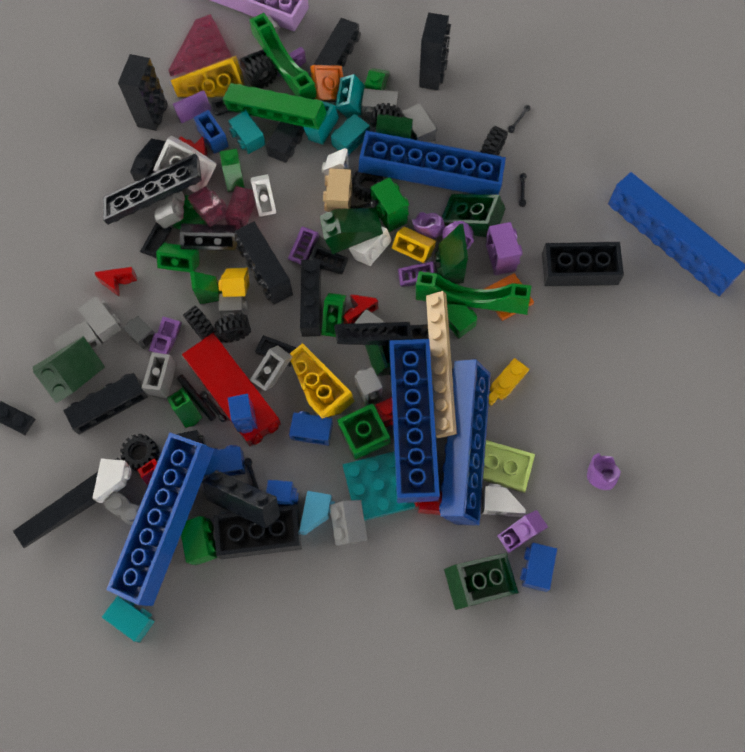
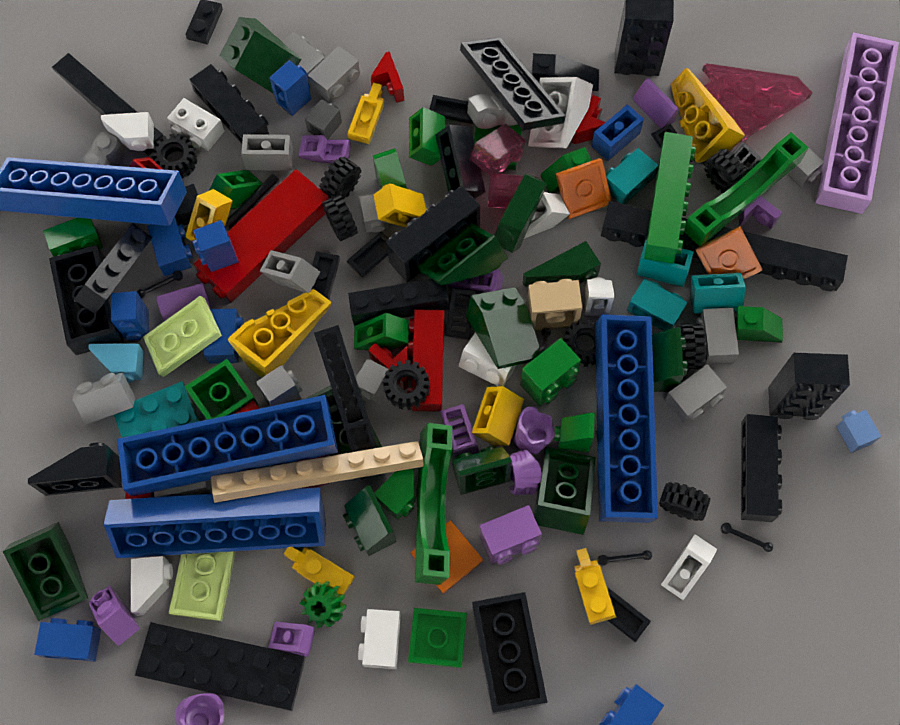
camera: 80 degrees right, 0 degrees up
(106, 349) = (291, 87): none -> blue brick
(114, 432) = (195, 124): none -> white brick
(144, 300) = (367, 115): none -> yellow hinge
(210, 424) = (207, 210): none -> yellow brick
(249, 159) = (584, 188): none -> orange tile
(263, 202) = (520, 213): none -> dark green slope
(265, 313) = (369, 255): none -> black tile
(276, 458) = (174, 301): none -> medium lavender slope
(289, 243) = (464, 257): none -> dark green slope
(307, 457) = (182, 336): none -> yellowish green tile
(309, 183) = (574, 264): none -> dark green slope
(361, 283) = (428, 352): none -> red brick
(379, 285) = (406, 399): none -> black tyre
(407, 538) = (80, 471): none -> black slope
(435, 195) = (575, 432): none -> green slope
(460, 42) = (858, 430): none -> medium blue brick
(475, 99) = (760, 468): none -> black brick
(479, 337) = (369, 522): none -> dark green slope
(534, 378) = (326, 612): none -> green gear
(535, 151) = (689, 567): none -> white slope
(543, 208) = (593, 589): none -> yellow hinge
(555, 402) = (292, 638): none -> medium lavender slope
(561, 197) = (627, 618): none -> black tile
(563, 343) = (381, 639): none -> white brick
(564, 309) = (437, 638): none -> green plate
(567, 459) = (221, 666): none -> black plate

